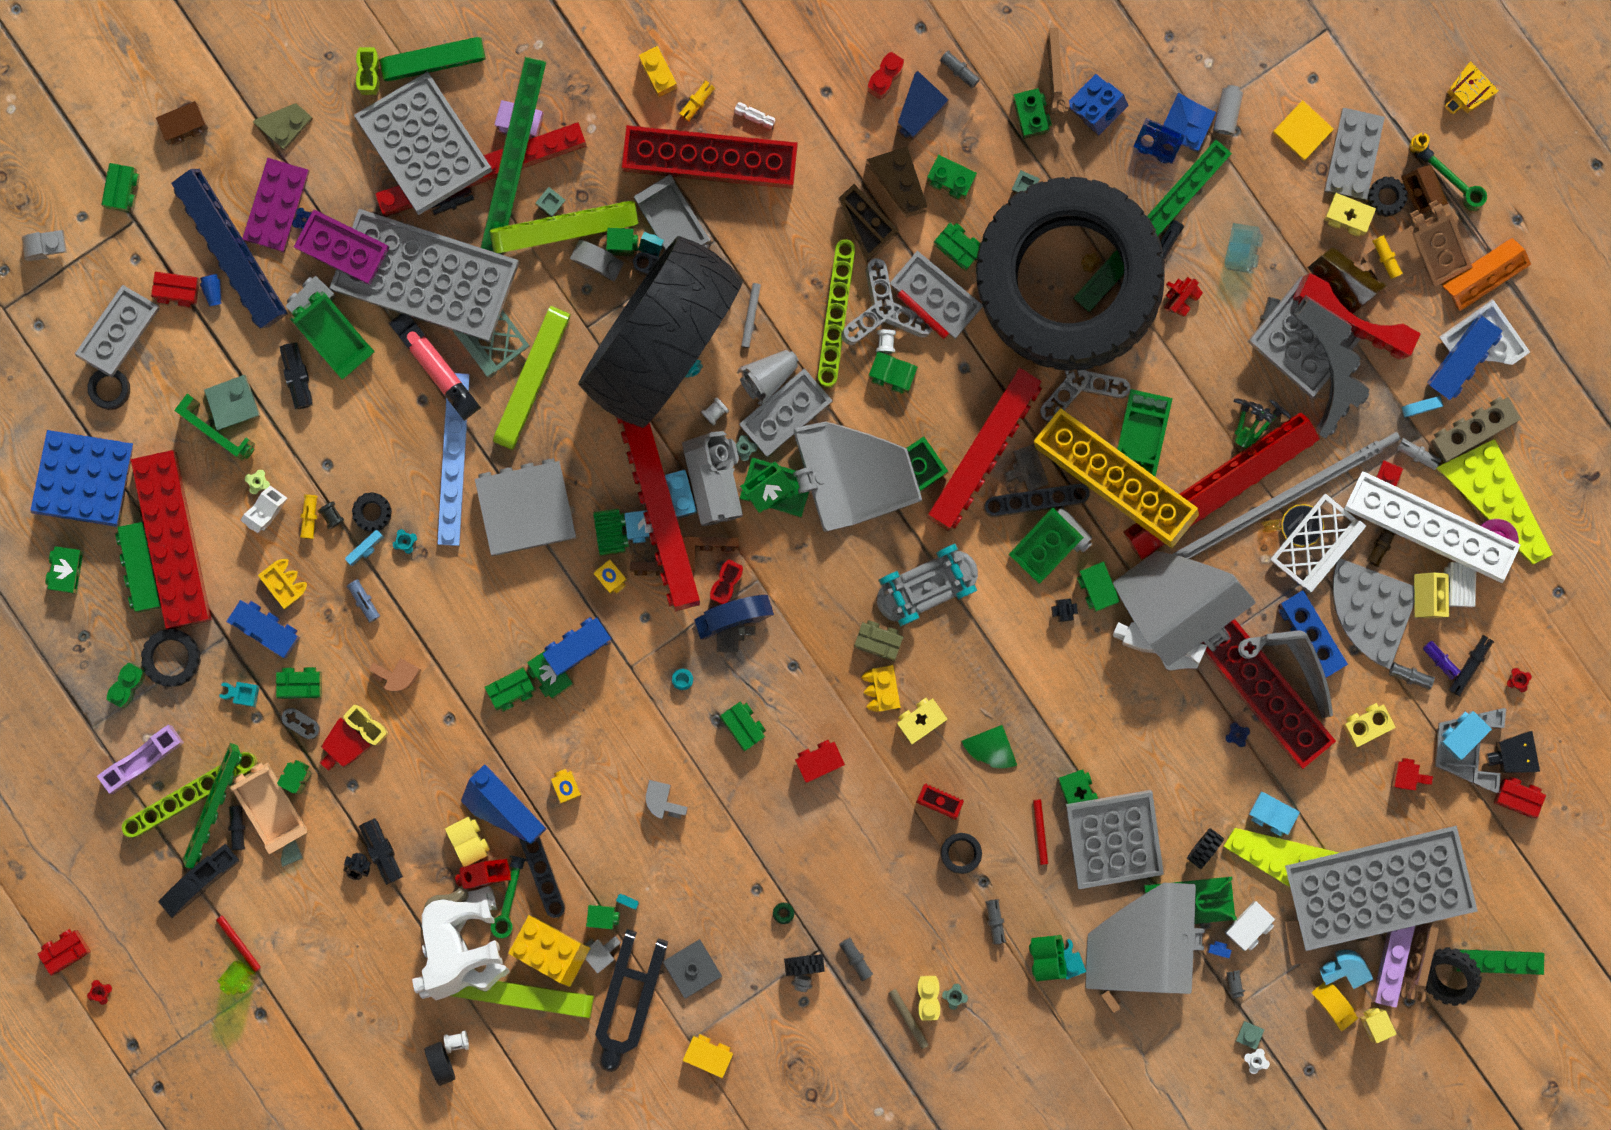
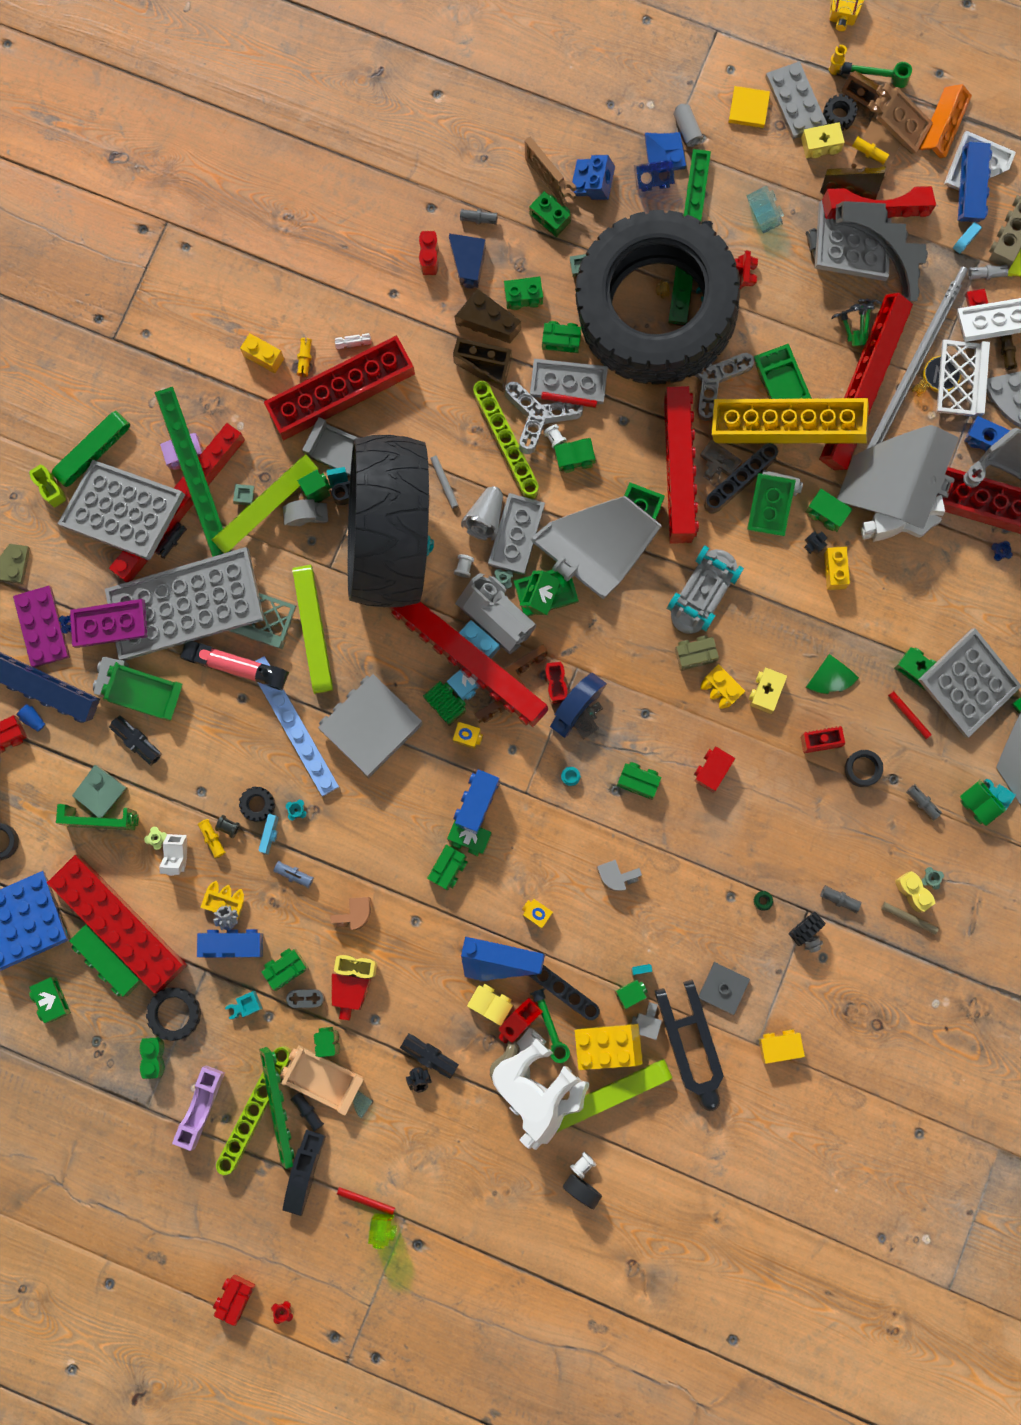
camera: 25 degrees left, 5 degrees down
(275, 601) = (225, 918): none -> light grey gear
(1066, 648) = (836, 568): none -> yellow brick

